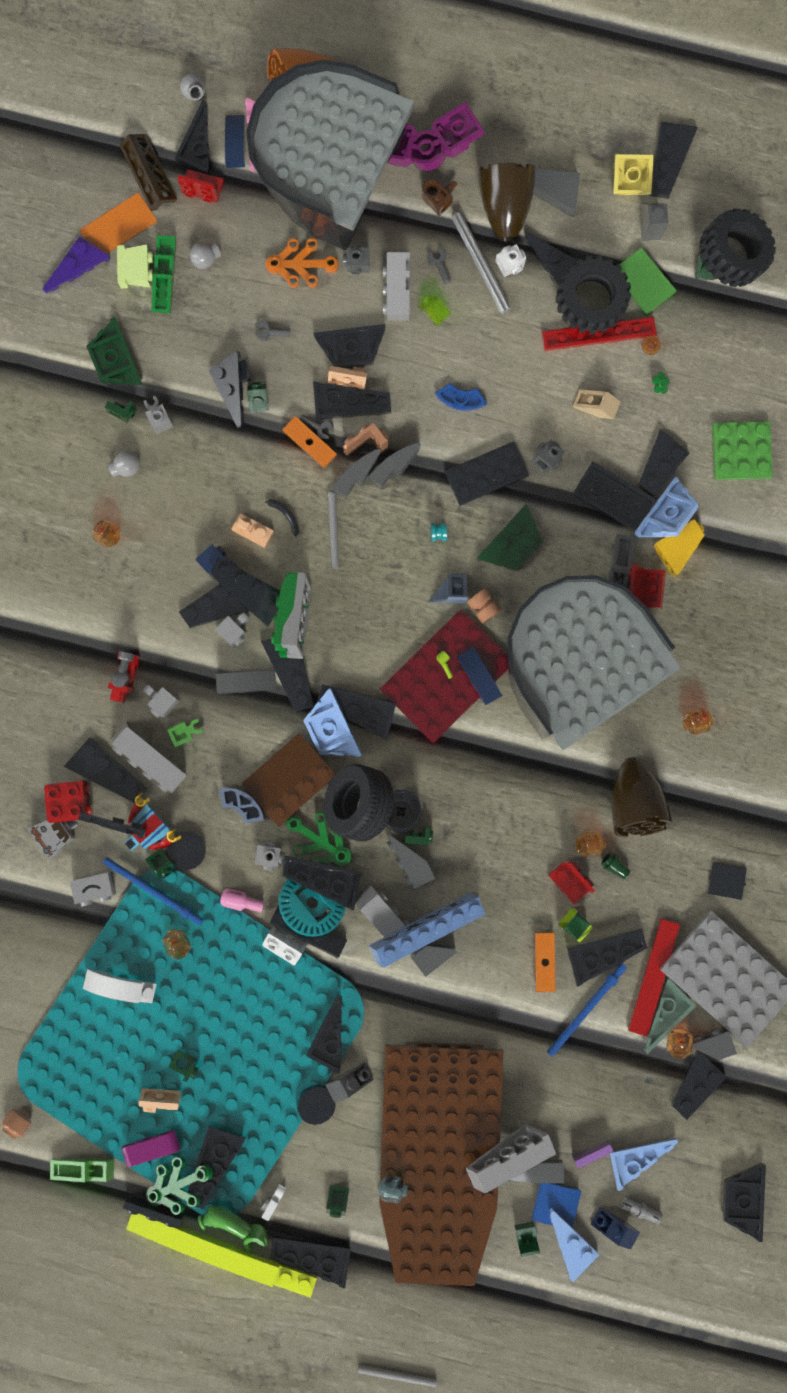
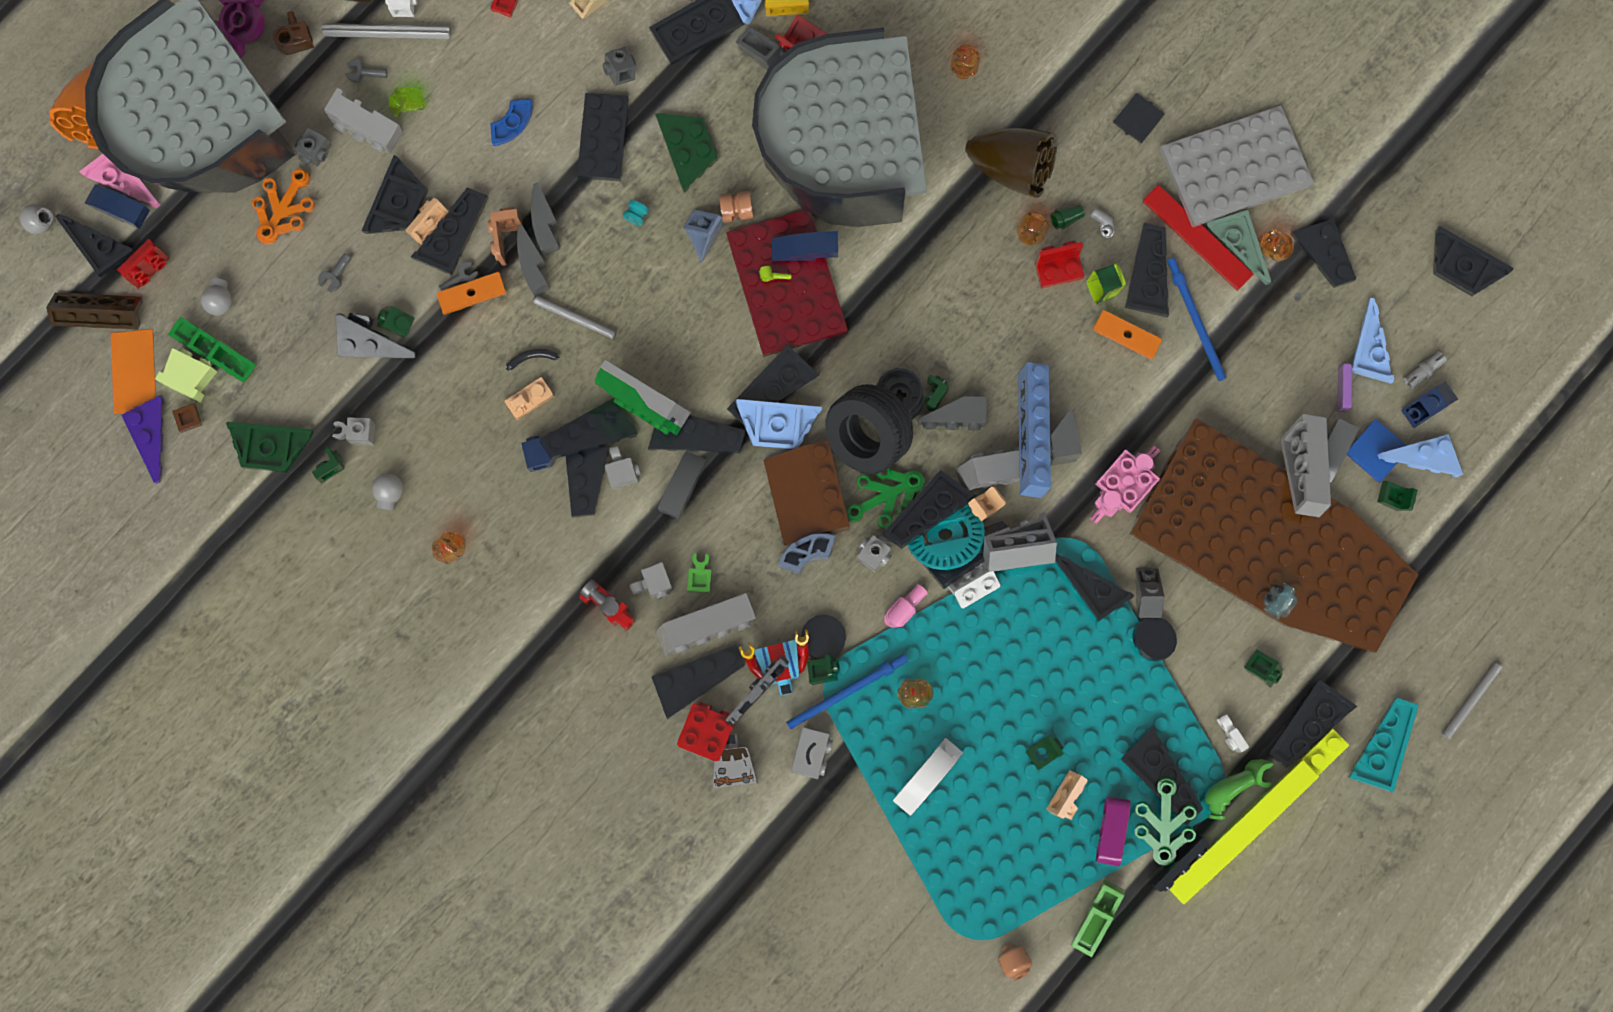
camera: 60 degrees left, 5 degrees down
(102, 285) = (187, 418): none -> reddish brown plate
(323, 1327) = (1386, 749): none -> teal wing
(330, 966) = (1020, 547): none -> light grey wedge
(352, 922) = (987, 503): none -> light nougat bracket
(425, 1022) = (1125, 483): none -> bright pink piece
(626, 899) = (1105, 221): none -> light grey arm
(717, 1044) = (1296, 211): dark grey slope -> none

